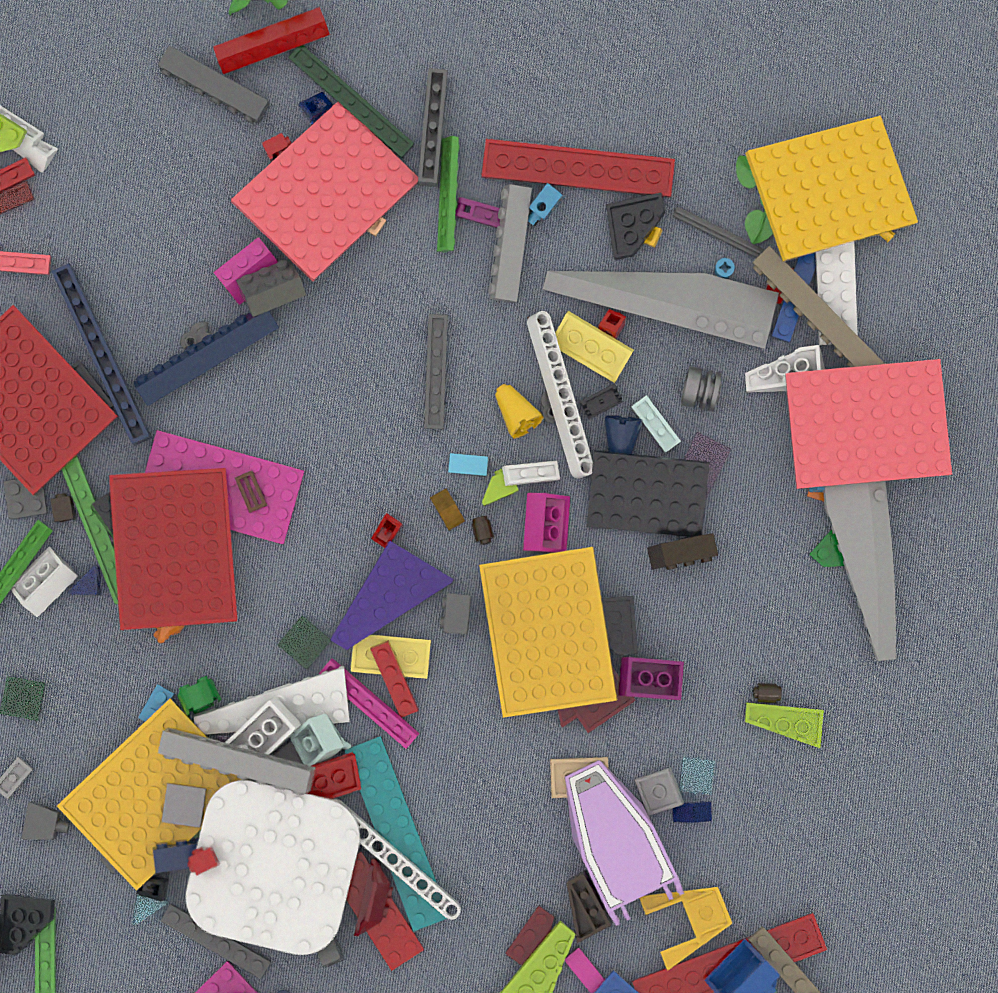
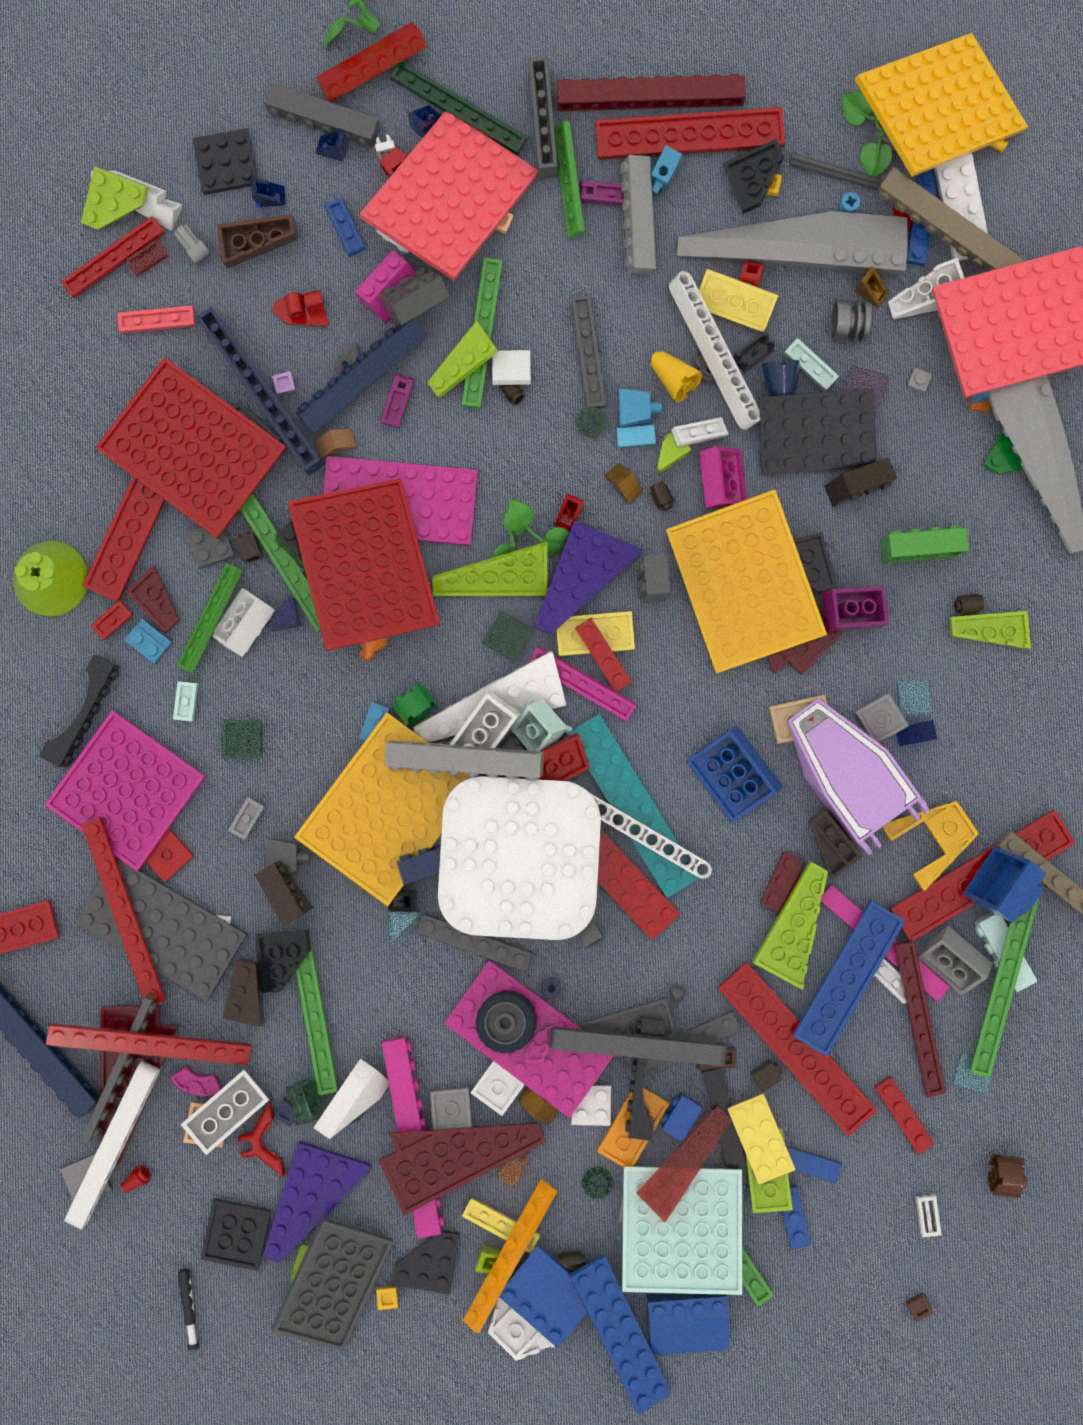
camera: 10 degrees left, 0 degrees up
(36, 859) = (283, 892): none -> dark brown wedge
(61, 195) = (194, 248): none -> light grey piece
(109, 113) = (225, 161): none -> black plate
(117, 199) = (254, 237): none -> reddish brown wedge
(127, 349) = (284, 383): none -> lavender plate
(144, 154) = (267, 193): none -> clear blue slope
(159, 277) = (302, 309): none -> red panel
(168, 417) = (335, 442): none -> medium nougat slope
(183, 805) = (419, 814): flat silver tile -> none
(202, 860) = (449, 862): red brick -> none
(216, 201) = (345, 227): none -> blue tile
(218, 117) = (333, 145): none -> clear blue slope
(236, 387) = (397, 401): none -> magenta plate
(257, 506) = (438, 511): reddish brown tile -> none
(270, 130) = (384, 148): none -> white tile
(309, 359) = (465, 358): none -> lime wing
(316, 582) = (509, 574): none -> lime wing
(331, 532) = (516, 521): none -> bright green plant
(333, 333) = (485, 316): none -> bright green plate
(352, 398) = (513, 393): none -> dark brown cone
(356, 374) = (511, 367): none -> white tile
(374, 898) = (623, 872): dark red wedge -> none
(428, 451) = (599, 418): none -> clear green gear
(472, 437) = (635, 407): none -> dark azure torso
(503, 820) = (734, 773): none -> blue slope
(546, 120) = (650, 92): none -> dark red brick
(731, 358) = (872, 288): none -> pearl gold slope
(732, 627) = (924, 544): none -> bright green brick
(761, 458) = (919, 380): none -> light grey plate

